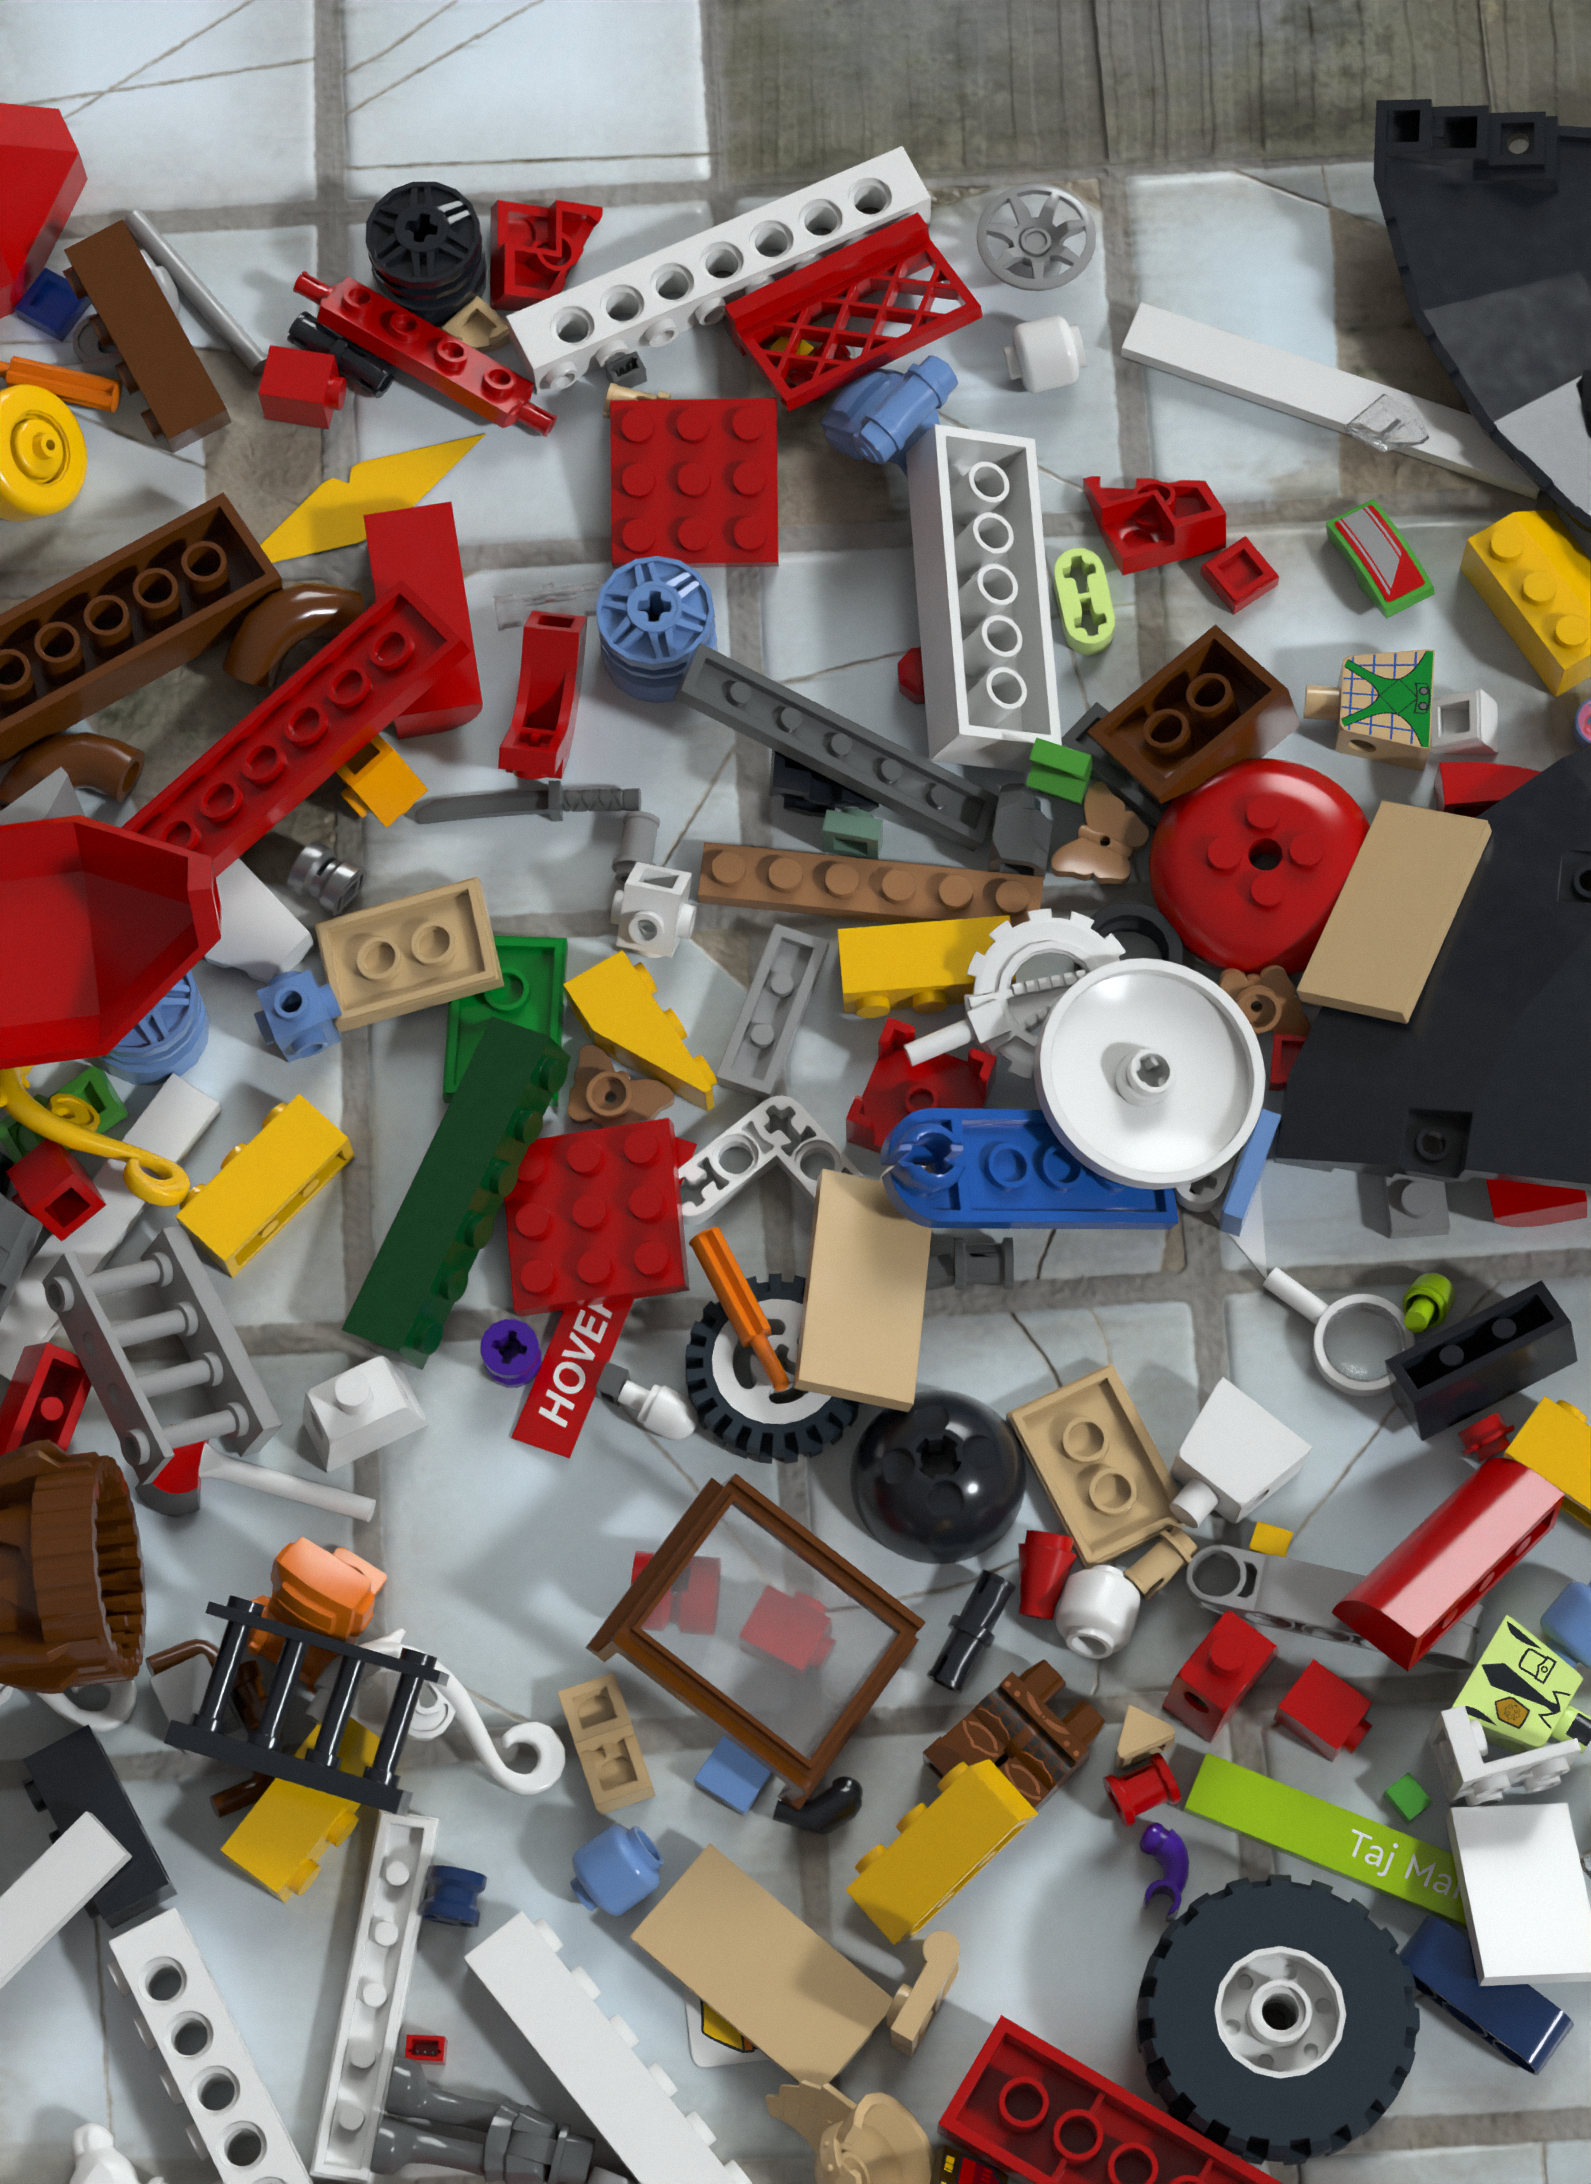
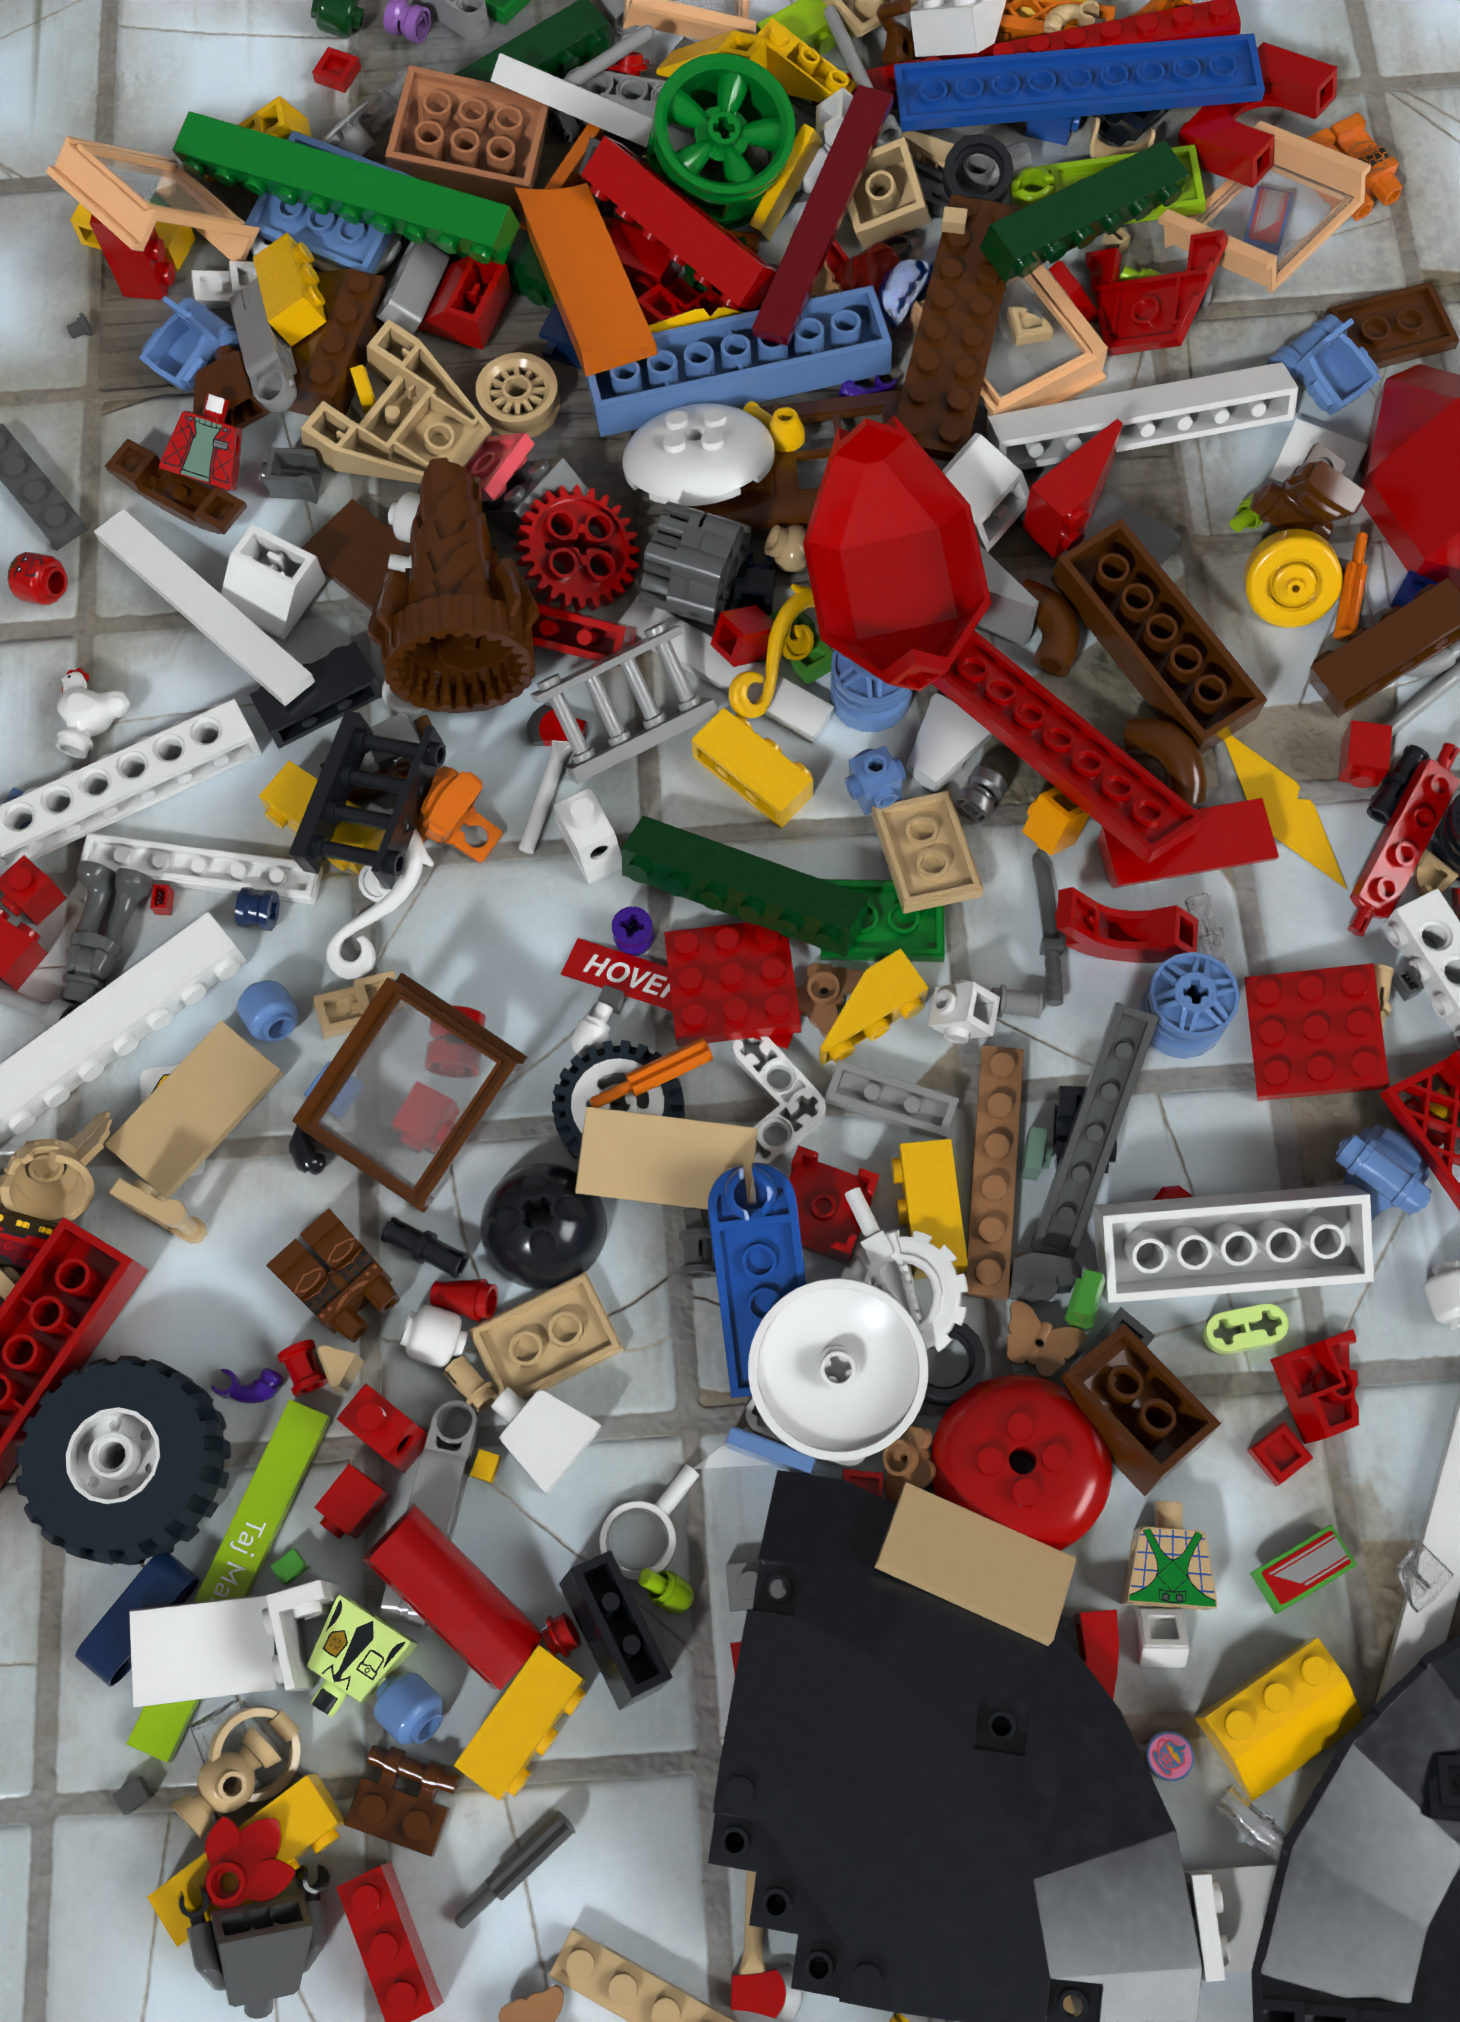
camera: 90 degrees right, 0 degrees up
(939, 1849) = (258, 1219): yellow brick -> none

